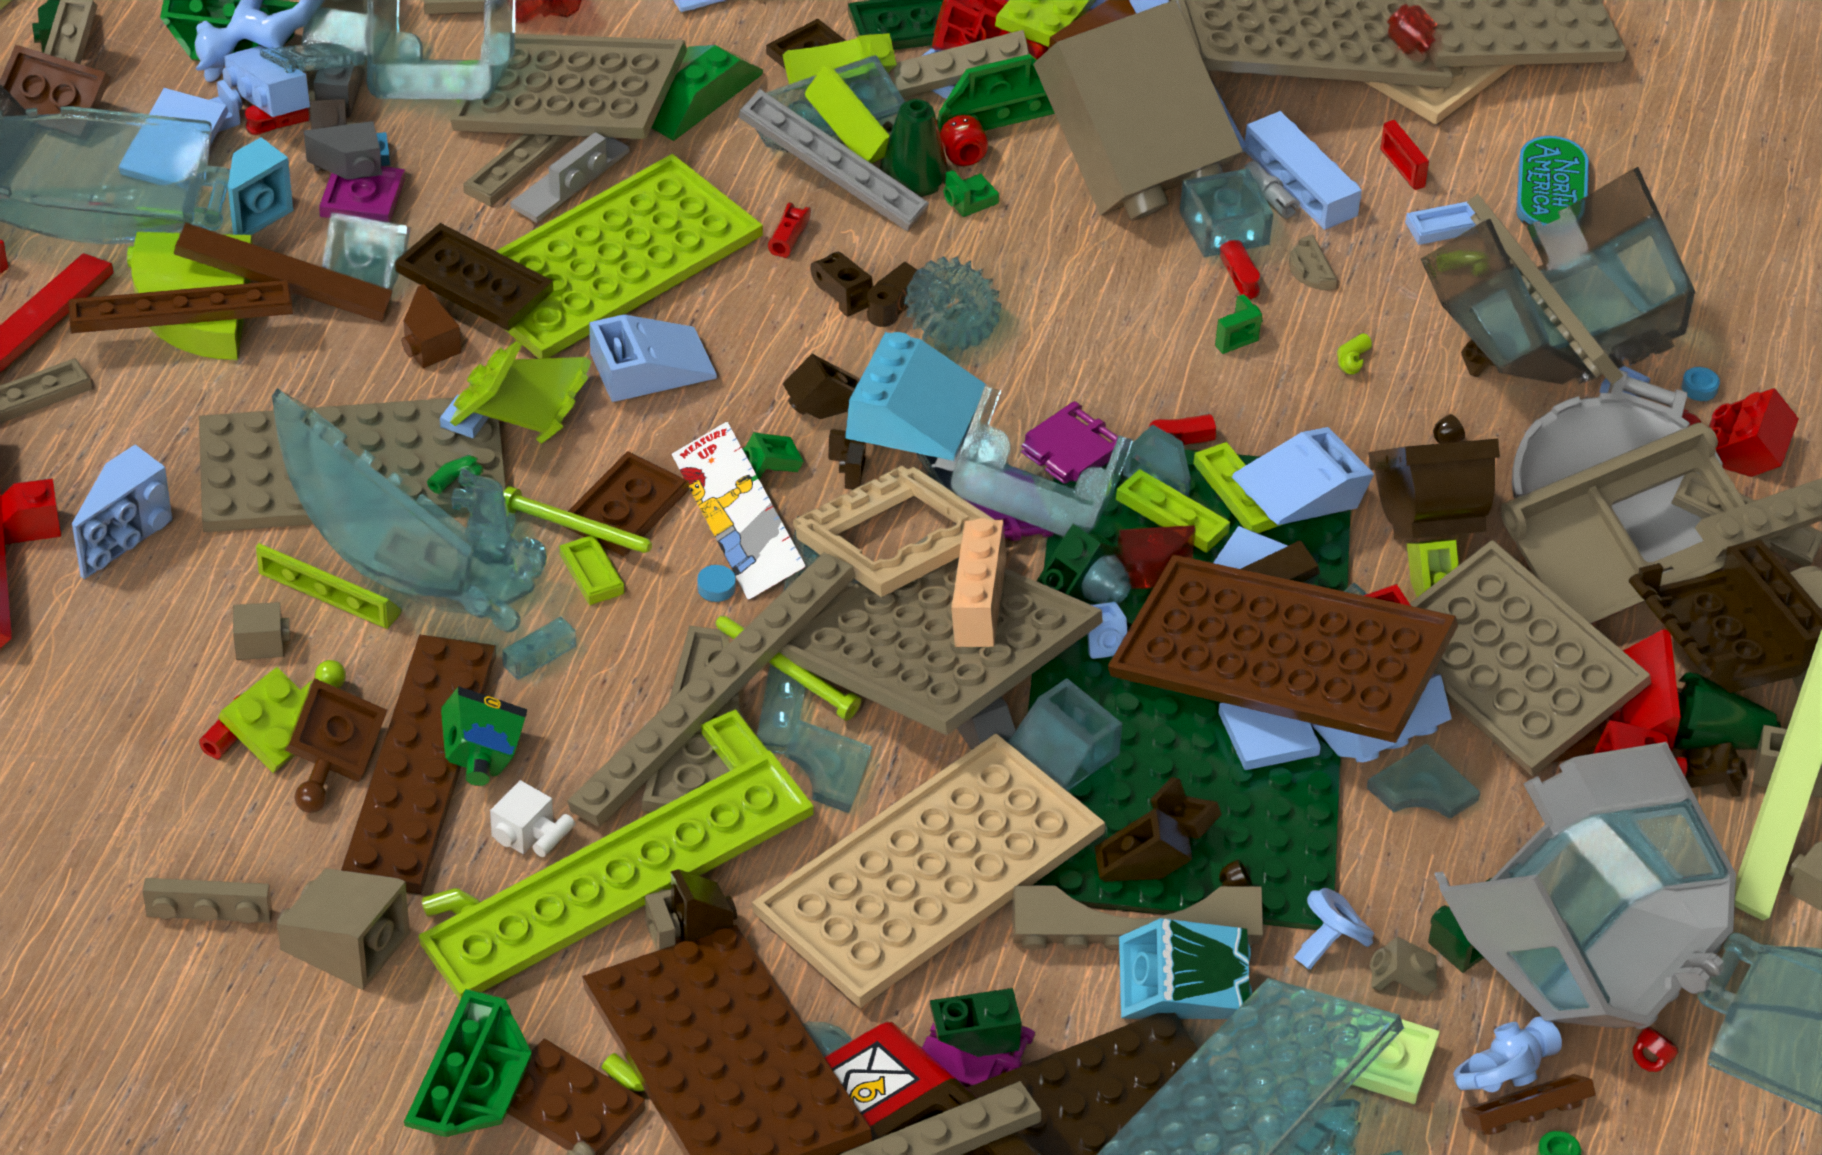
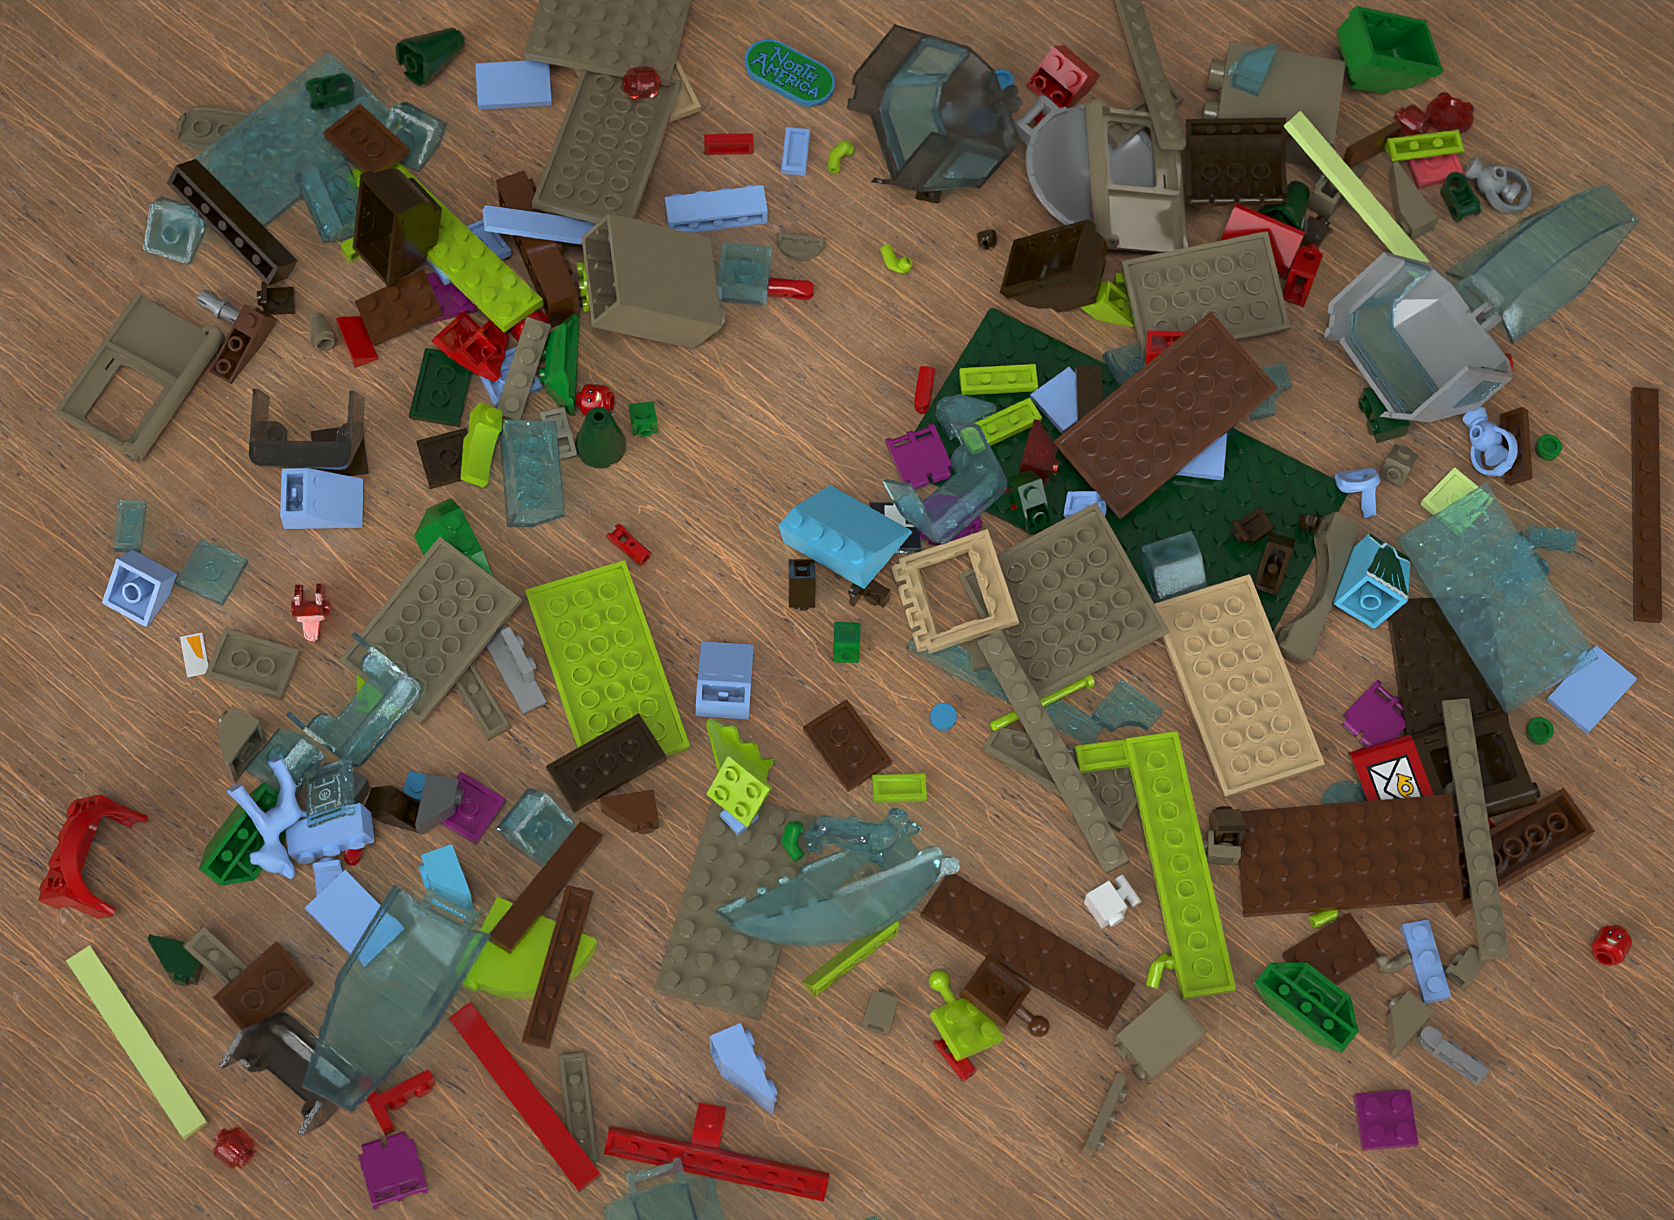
camera: 70 degrees left, 20 degrees up
(480, 733) = (1036, 904): green torso -> none
(516, 501) = (862, 781): lime bar -> none
(539, 648) = (960, 843): clear light blue piece -> none
(738, 511) = (885, 679): sticker -> none
(833, 160) = (586, 490): light grey tile -> none
(843, 281) = (698, 532): dark brown leg -> none
(847, 115) = (559, 463): lime slope -> none
(888, 296) = (724, 503): dark brown leg -> none
(943, 283) = (762, 473): clear light blue gear -> none
(979, 583) = (1048, 562): light nougat brick -> none
(979, 1022) = (1379, 704): dark green slope -> none
(1106, 581) = (1055, 488): clear light blue cone -> none
(1239, 328) = (846, 308): green bracket -> none
(1273, 190) = (732, 235): light grey pin -> none
(1306, 478) = (1019, 338): light blue slope -> none
(1549, 299) = (914, 128): dark tan plate -> none

